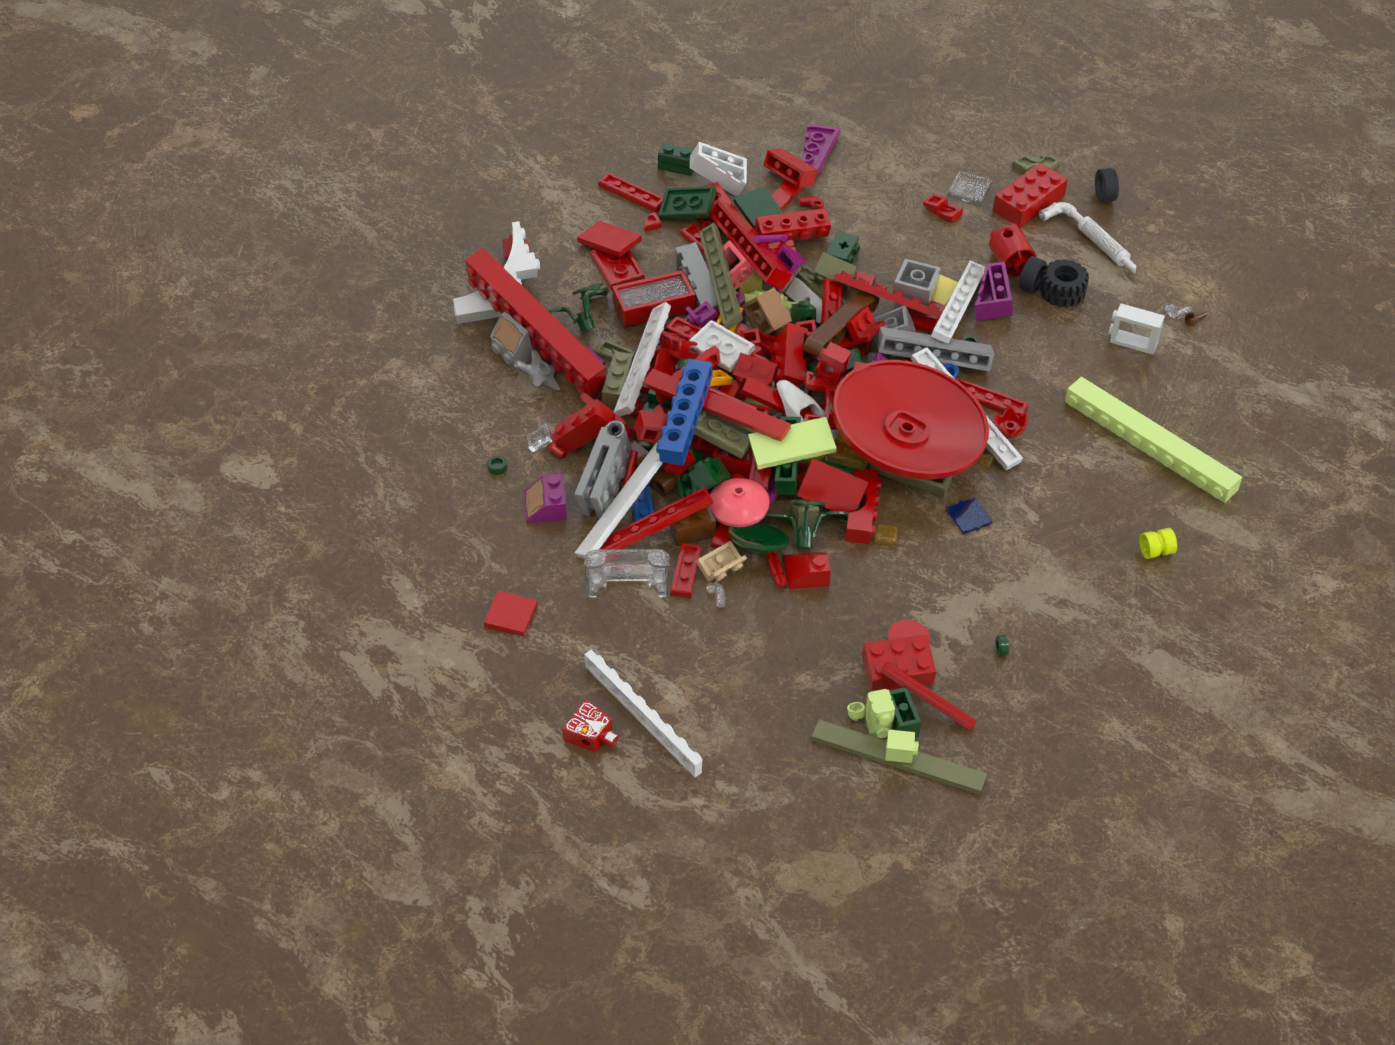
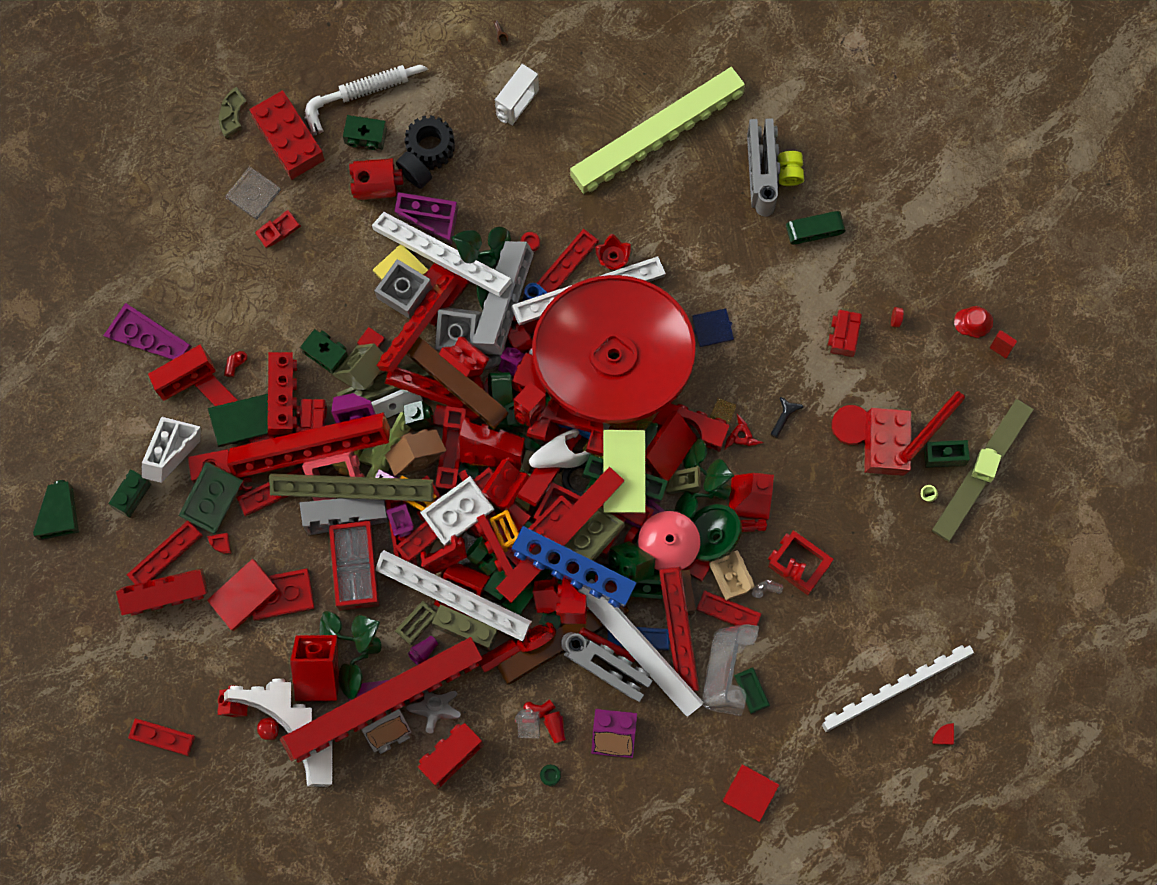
camera: 75 degrees left, 25 degrees up
(477, 217) = (161, 737): none -> red tile
(497, 385) = (450, 755): none -> red brick
(542, 458) = (555, 726): none -> red cone
(555, 283) = (315, 668): none -> red slope
(582, 426) = (538, 675): red brick -> none
(589, 728) = (907, 740): red torso -> none
(596, 187) = (162, 591): none -> red wedge
(604, 763) = (944, 735): none -> red tile
(612, 599) = (755, 695): none -> dark green tile
(649, 123) = (57, 512): none -> dark green slope
(737, 596) = (794, 570): none -> red wheel
(743, 629) = (808, 586): none -> red window
(770, 238) = (312, 421): magenta bar -> none
(865, 558) = (747, 440): none -> red piece
(879, 713) = (947, 473): yellowish green brick -> none
(906, 584) = (788, 409): none -> black piece
(970, 299) = (470, 242): none -> dark green plant
(1000, 370) = (532, 239): none -> red tile
(1002, 615) = (846, 333): none -> red brick
(1002, 645) = (880, 344): dark green tile -> none
(1036, 655) = (897, 317): none -> red tile
(1040, 744) = (1003, 344): none -> red tile
(1054, 242) = (374, 132): none -> dark green brick
(1059, 728) = (973, 321): none -> red hat
(1104, 575) = (815, 227): none -> dark green beam
(1106, 185) = (297, 53): black tyre -> none
(1148, 513) = (763, 186): none -> light grey hinge
(1174, 311) = (490, 48): clear arm -> none

